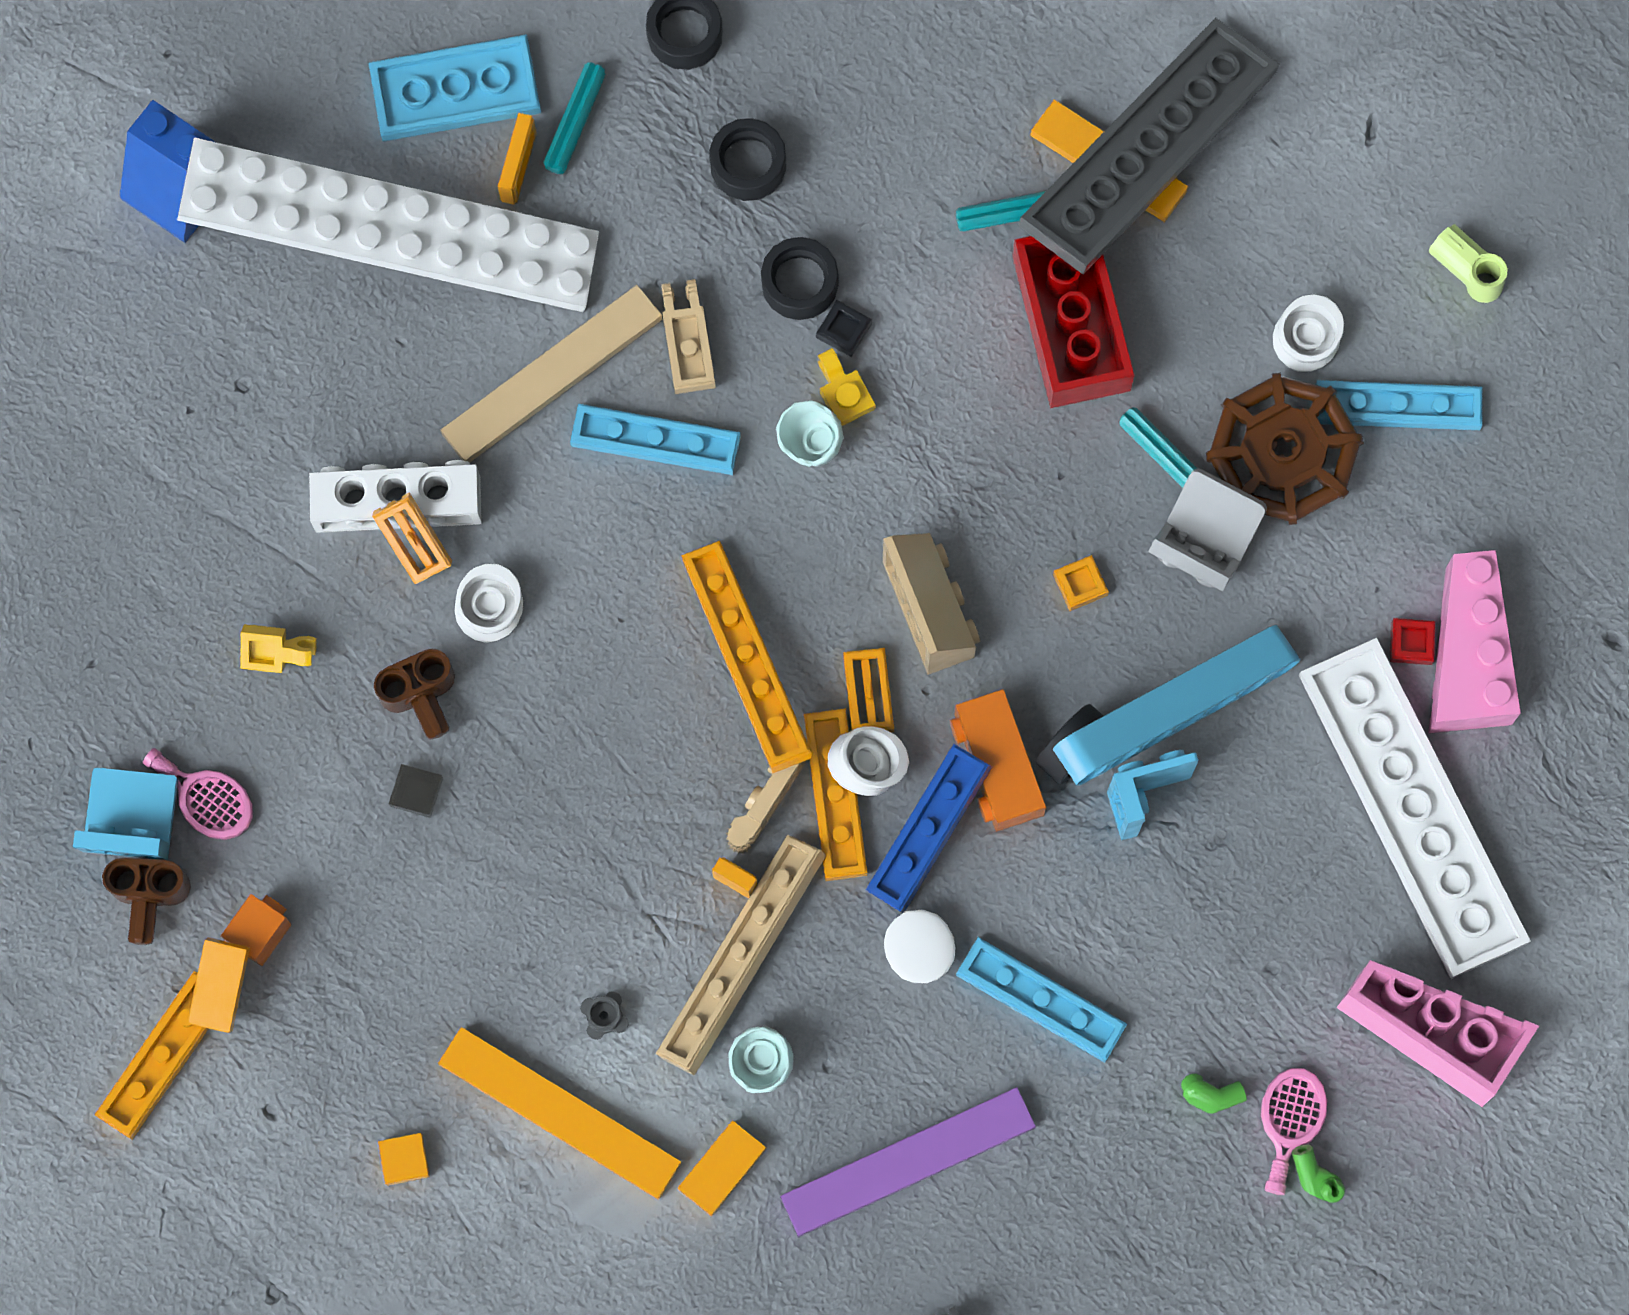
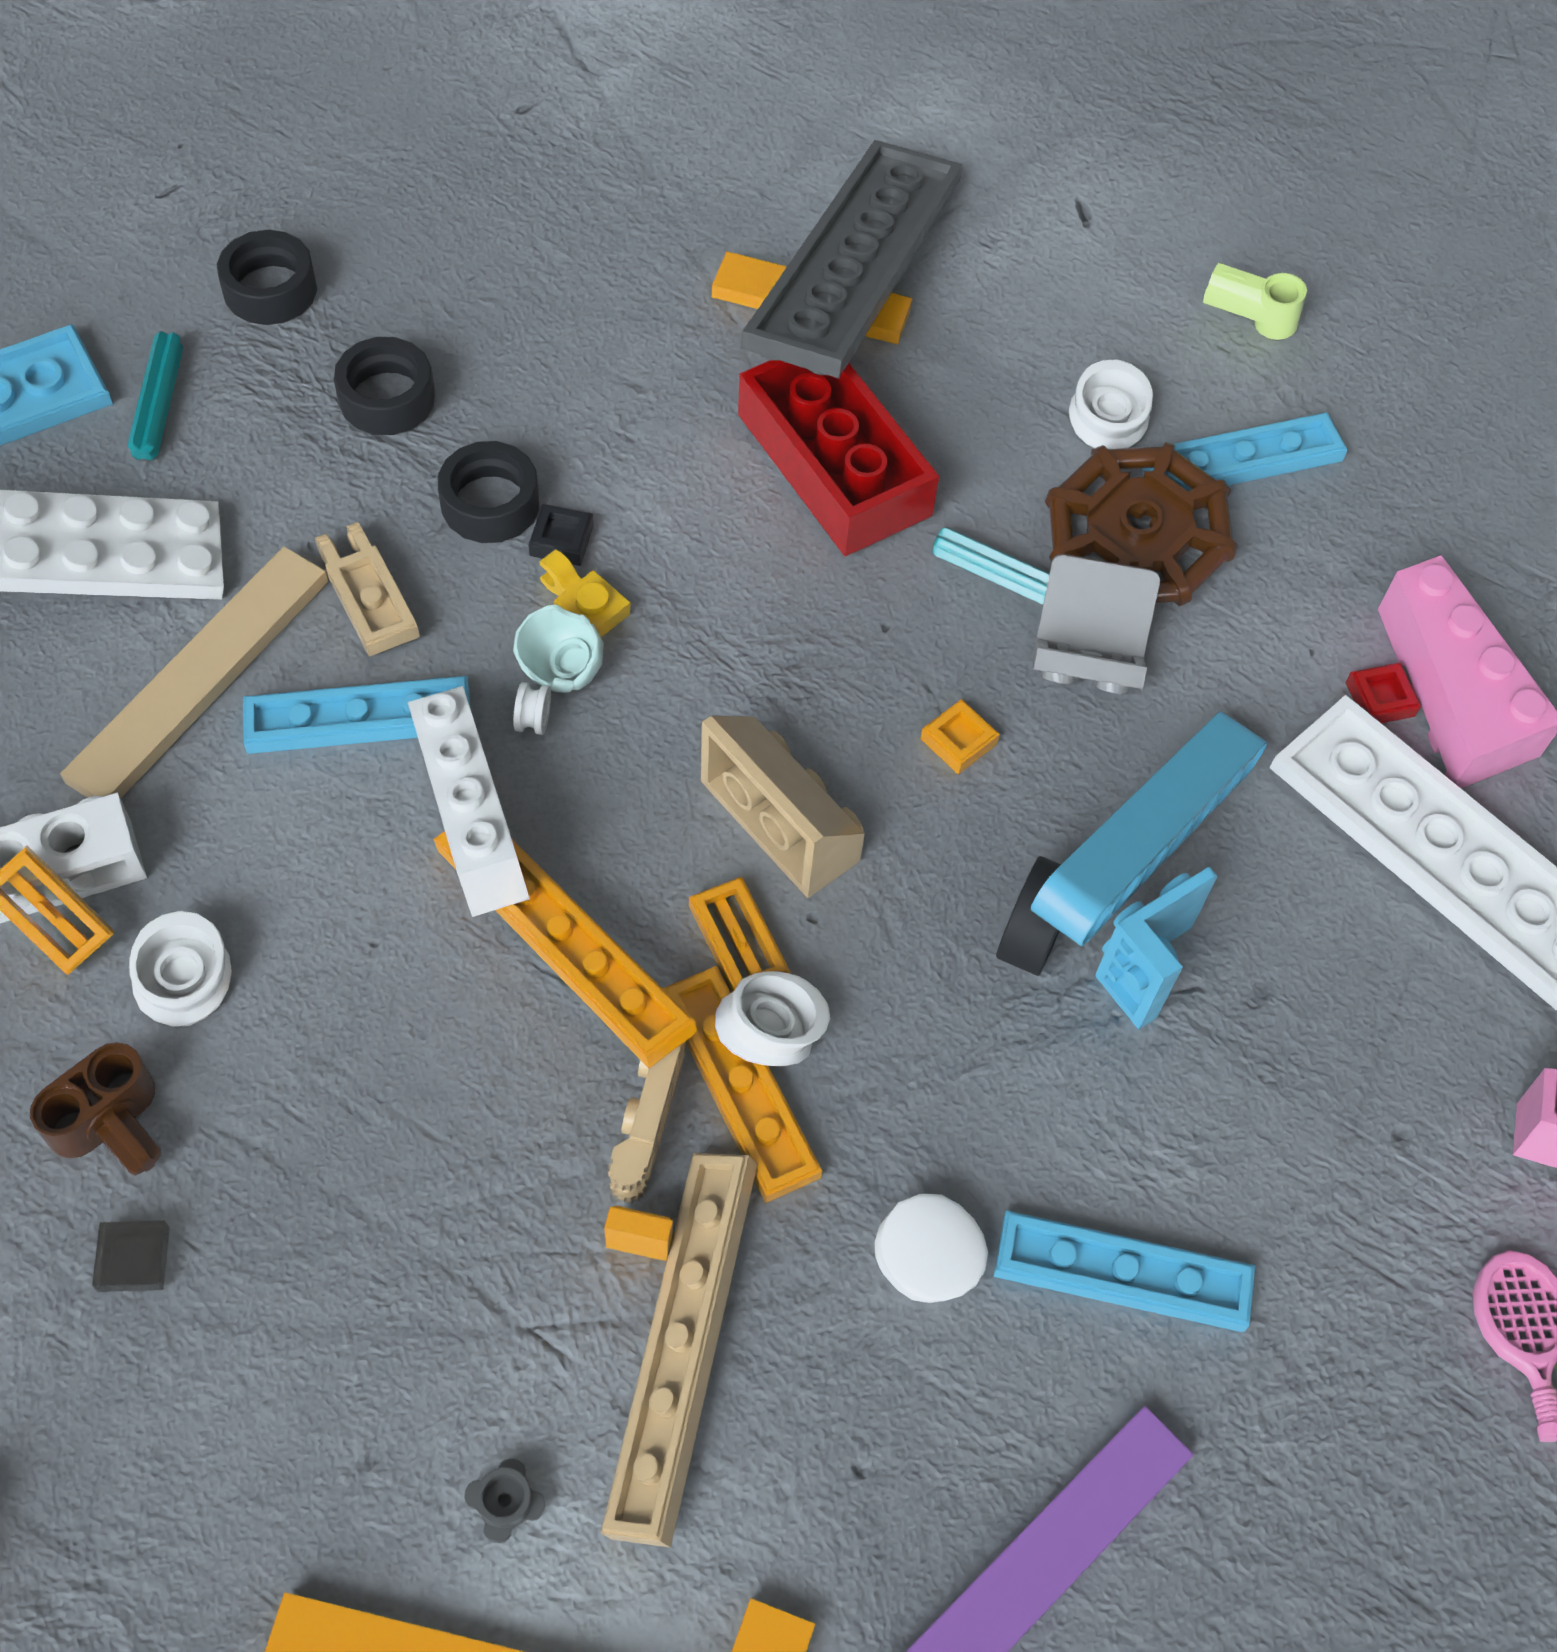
camera: 25 degrees left, 15 degrees down
(517, 159) = (91, 444): light orange tile -> none
(710, 540) = (468, 802): none -> white brick
(760, 1059) = (764, 1488): light aqua hair -> none
(778, 473) = (532, 708): none -> white bush
(928, 828) = (887, 1083): blue tile -> none
(992, 735) = (945, 971): orange brick -> none
(994, 212) = (705, 373): teal axle -> none
(1209, 1098) = (1406, 1331): bright green arm -> none

